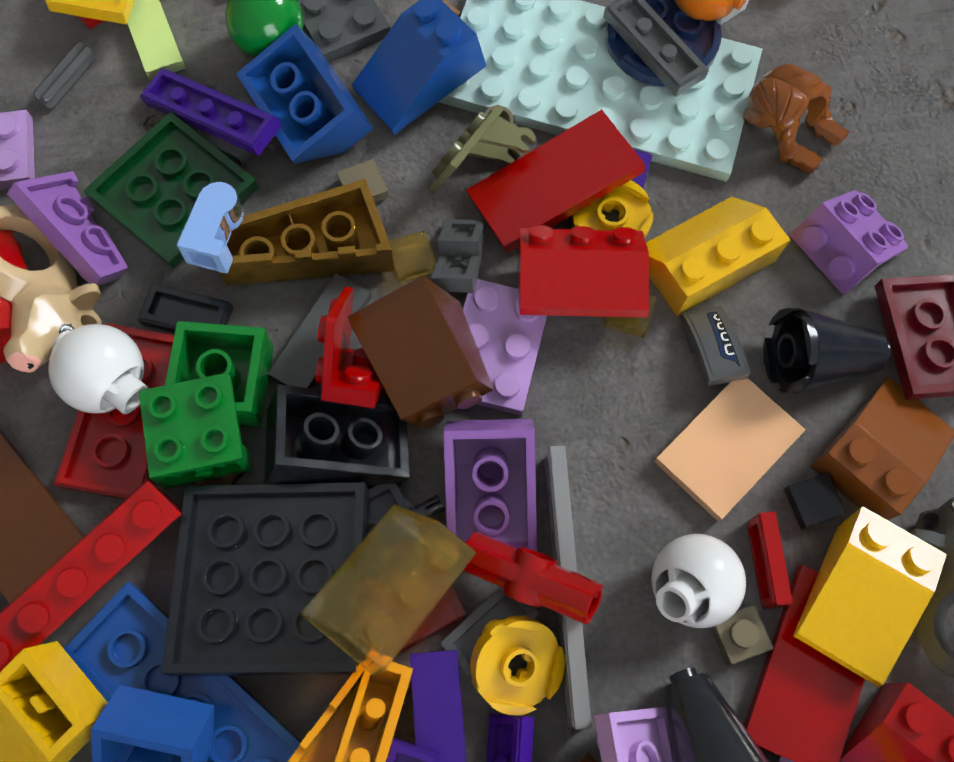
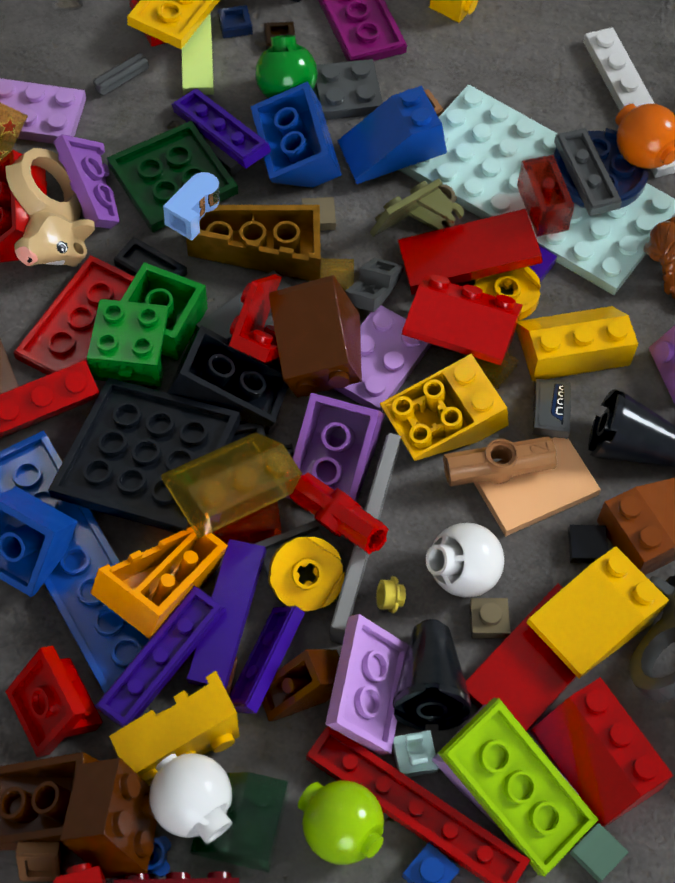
camera: 20 degrees right, 10 degrees down
(97, 369) = (75, 277): white brick -> none
(601, 392) = (447, 410): none -> yellow slope
(620, 649) = (390, 594): none -> light yellow plate
(622, 87) = (545, 195): none -> clear red brick
(709, 425) = (478, 463): none -> medium nougat piece
(769, 561) = (530, 570): red tile -> none

